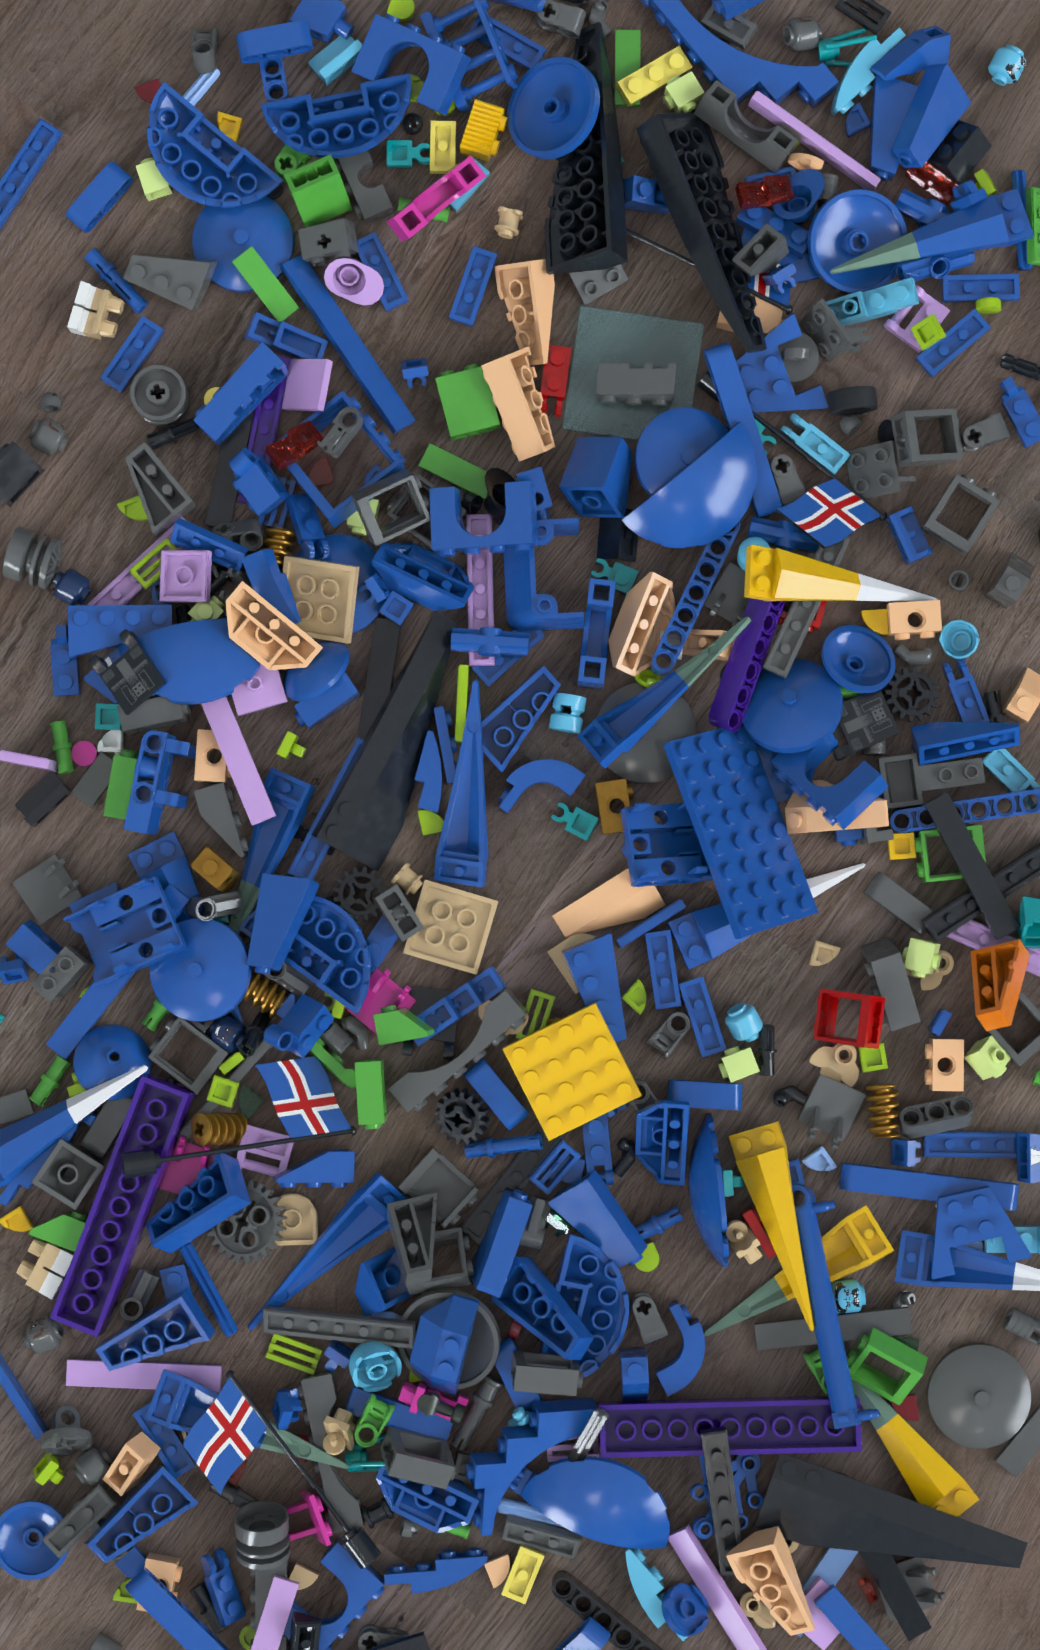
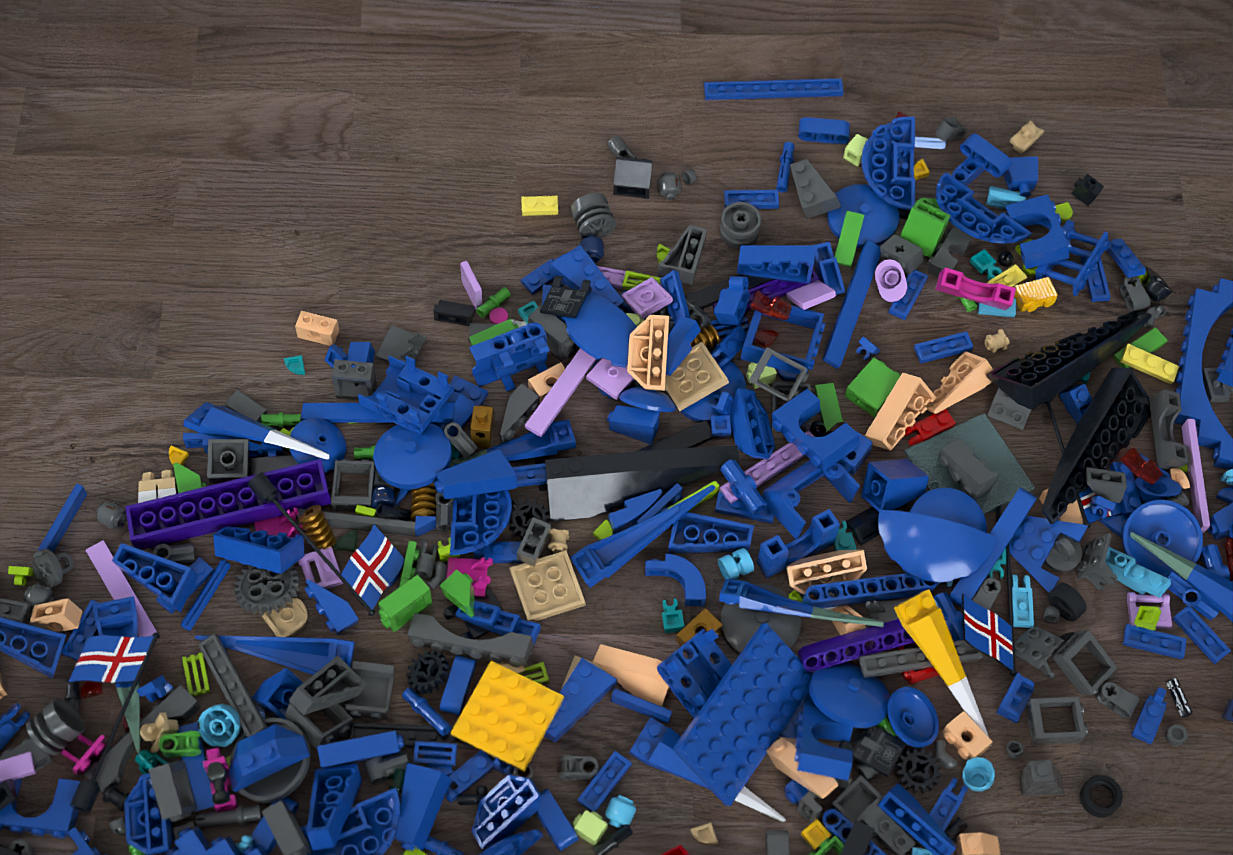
camera: 45 degrees right, 25 degrees down
(92, 310) = (757, 165): tan hips -> none
(171, 433) = (723, 246): black axle -> none
(223, 1091) = (343, 515): lime tile -> none
(289, 746) = (589, 422): lime tile -> none
(300, 1027) = (417, 532): blue hinge -> none
(303, 1575) = (41, 779): tan tile -> none
(338, 1355) = (212, 698): blue tile -> none
(340, 434) = (795, 324): dark grey piece -> none
(514, 1329) = (304, 802): dark red tile -> none
(553, 108) = (1082, 318): blue dish -> none
(636, 996) = (586, 732): lime tile -> none
(662, 969) = (616, 735): blue plate -> none
(683, 93) = (1155, 383): yellowish green brick -> none
(876, 620) = (945, 715): yellow tile -> none
(988, 305) = (1195, 646): lime tile -> none

